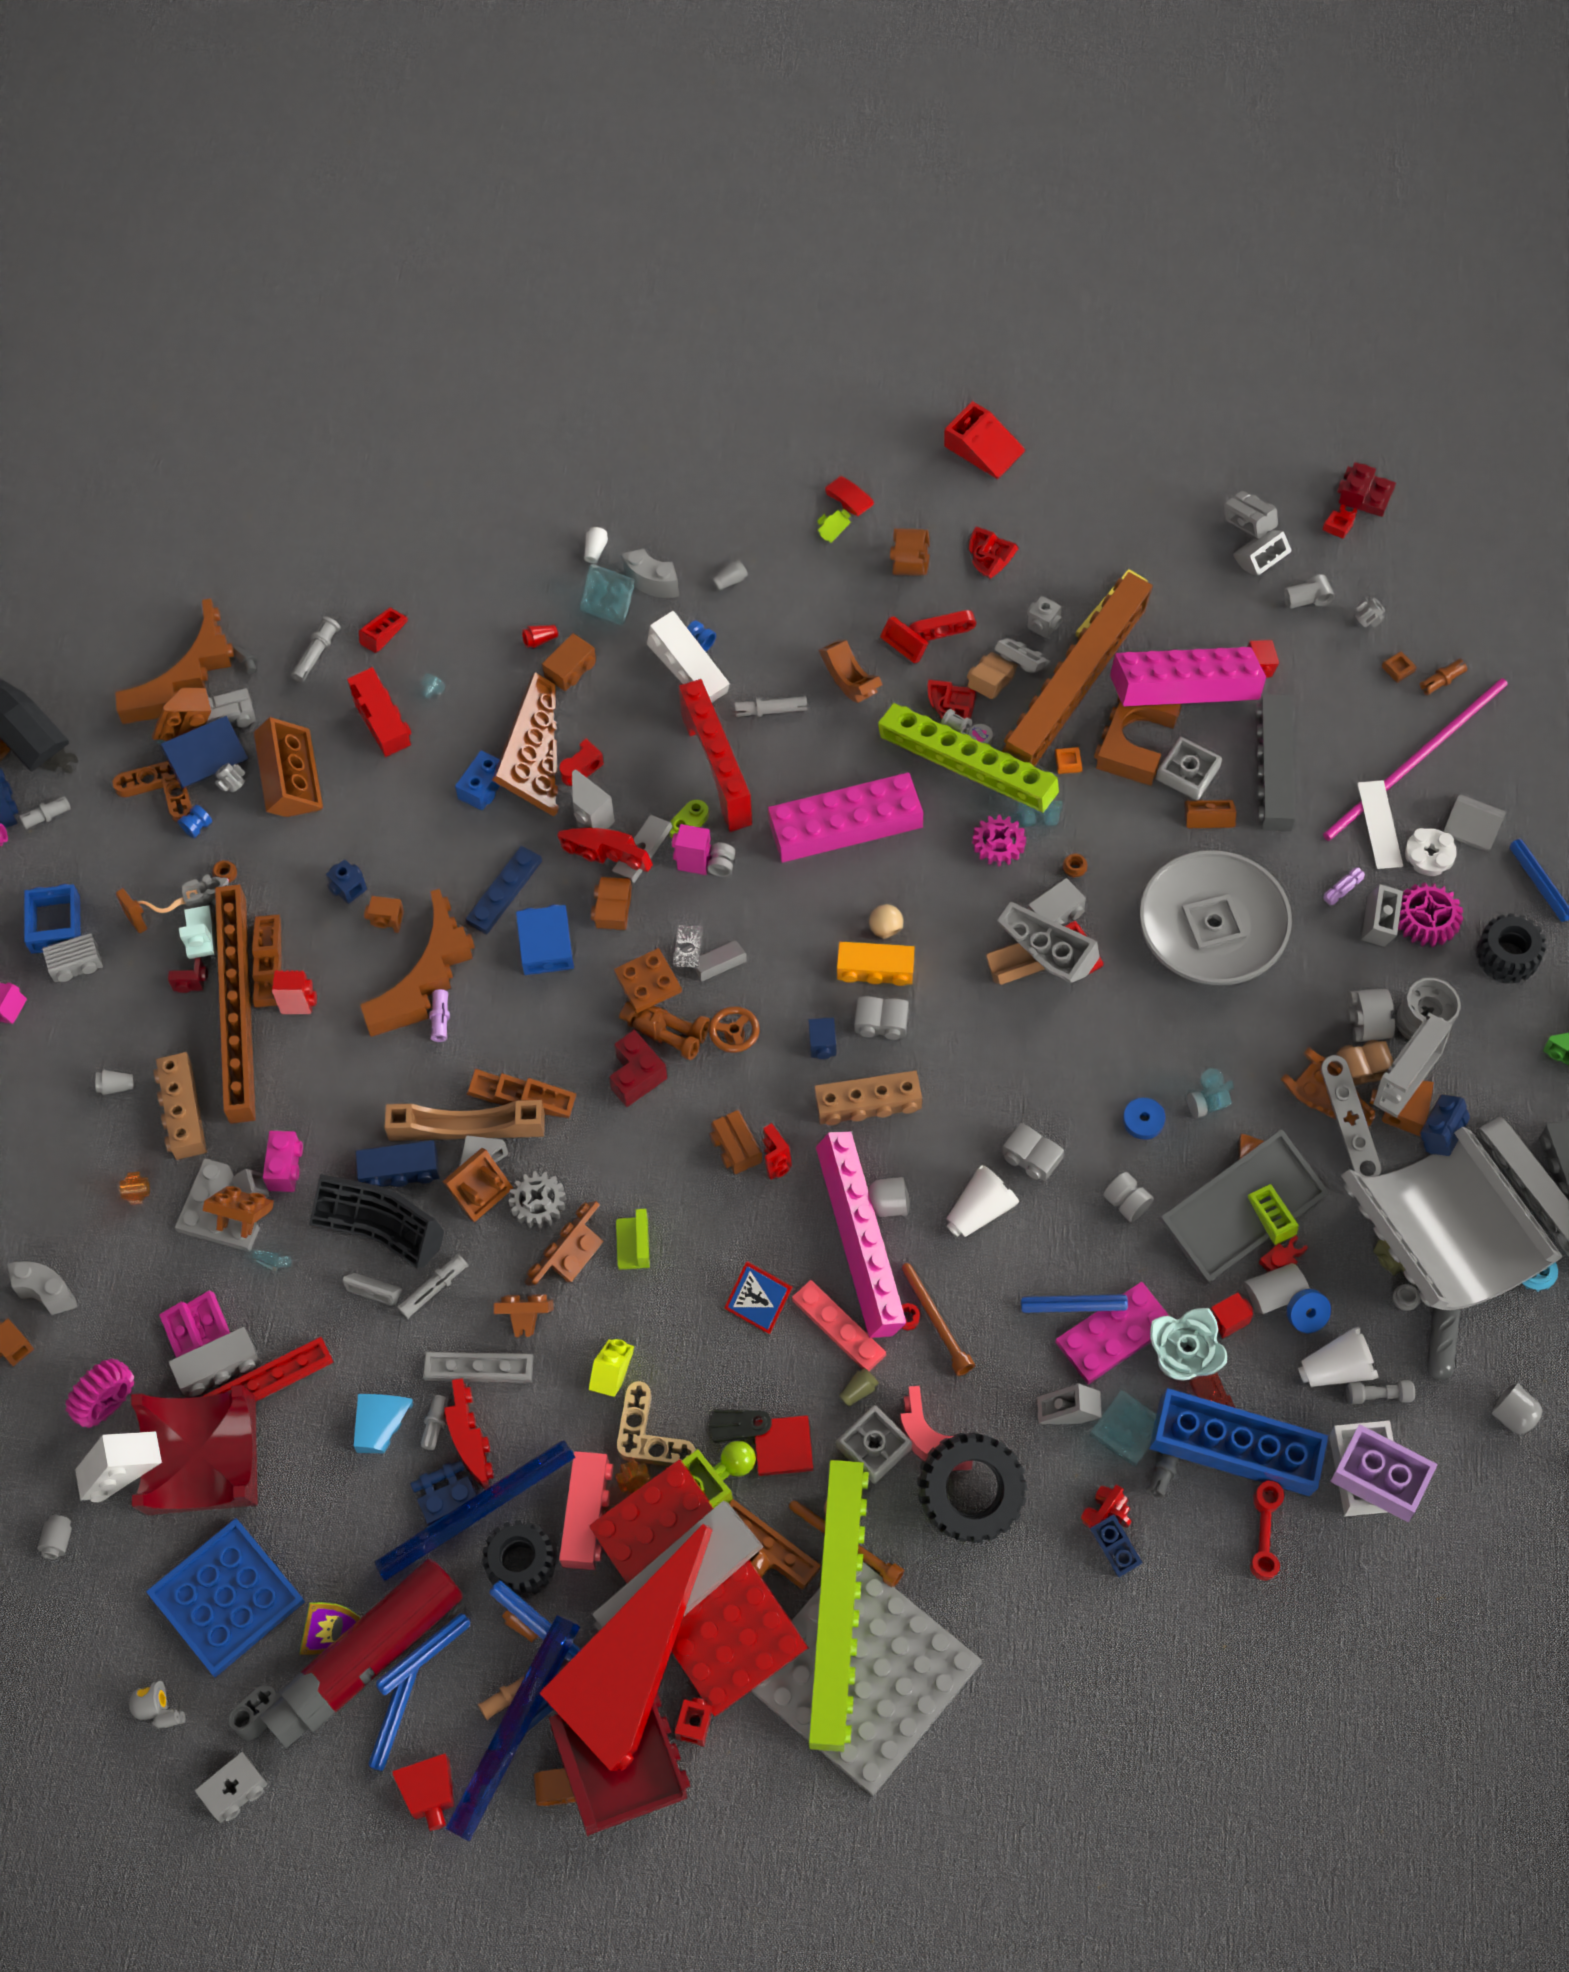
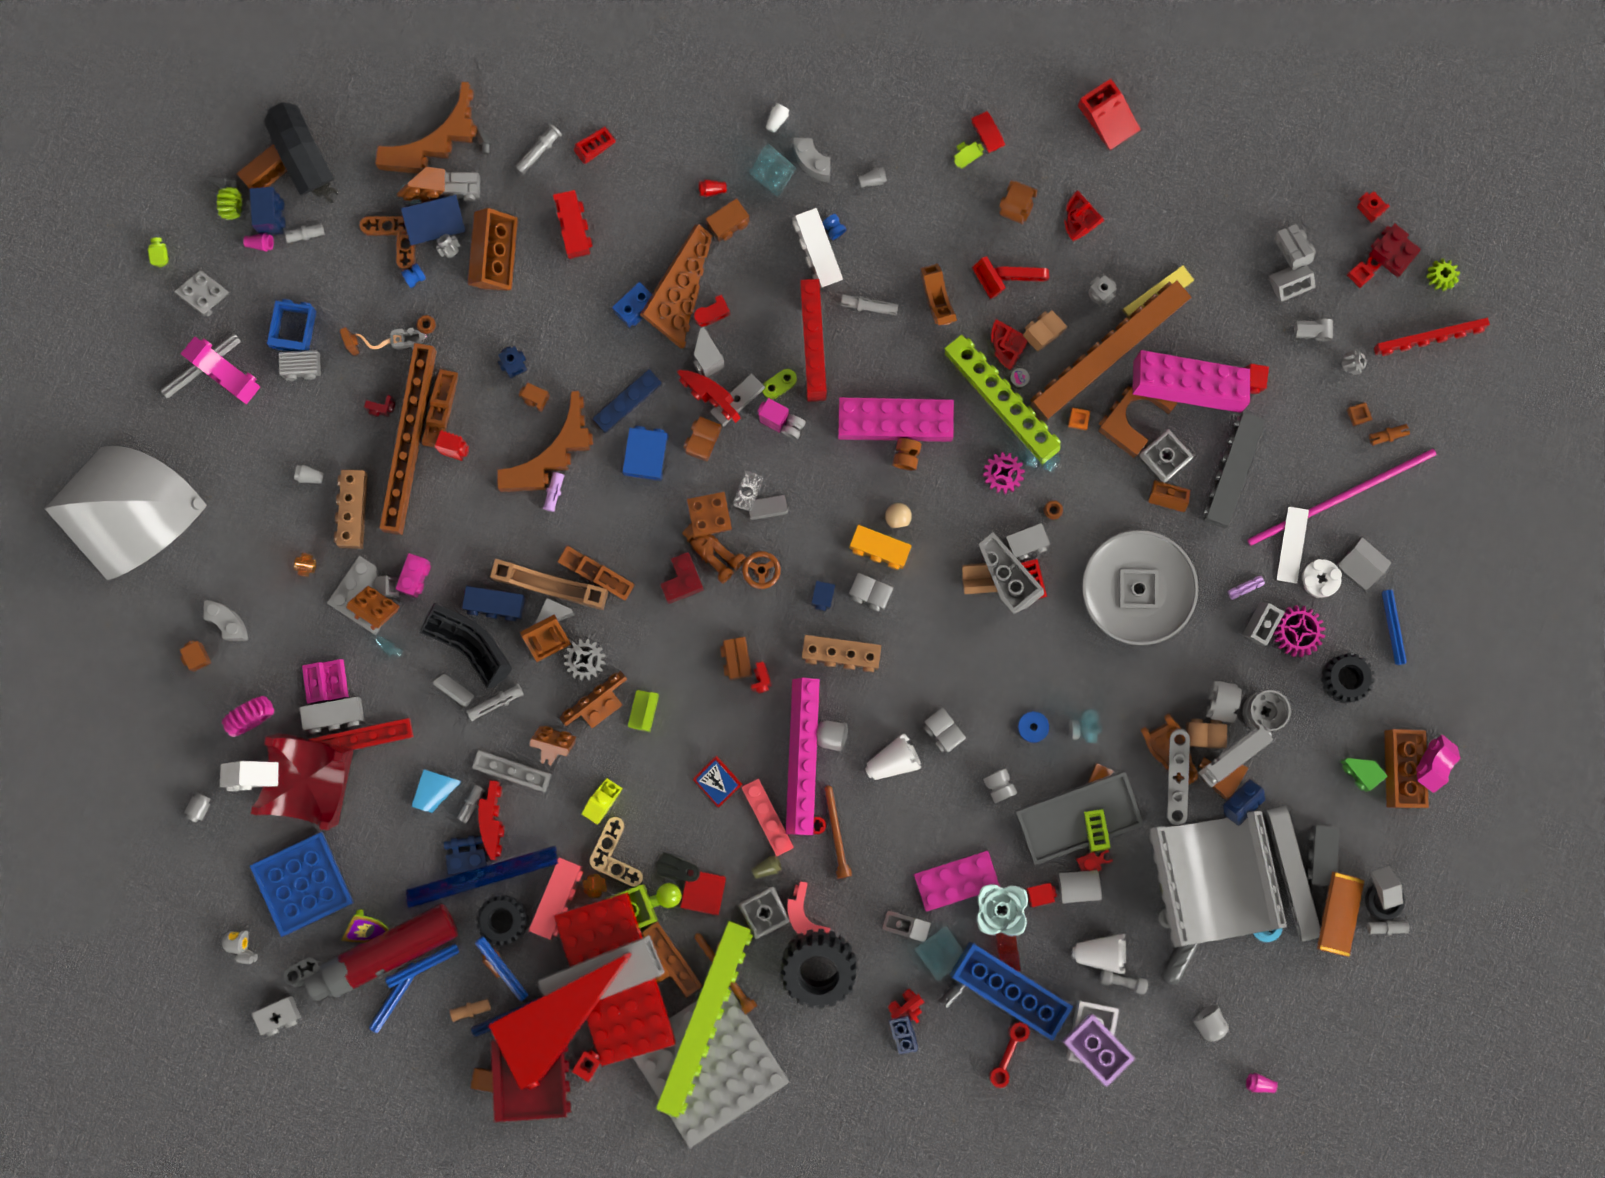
camera: 15 degrees right, 20 degrees up
(200, 932) = (396, 376): light aqua arch -> none
(427, 1789) = (402, 1056): red torso -> none
(432, 685) = (619, 209): clear light blue tile -> none
(512, 1728) = (468, 1034): clear blue tile -> none
(872, 850) = (907, 453): none -> dark orange wheel
(957, 722) = (1003, 365): light grey bush -> none
(1017, 651) = (1073, 320): light grey plate -> none
(1074, 1303) = (934, 853): blue axle -> none
(1301, 1303) = (1095, 909): blue piece -> none
(1321, 455) = (1369, 211): none -> red brick
(1432, 499) = (1448, 270): none -> lime gear
(1451, 561) = (1424, 339): none -> red plate

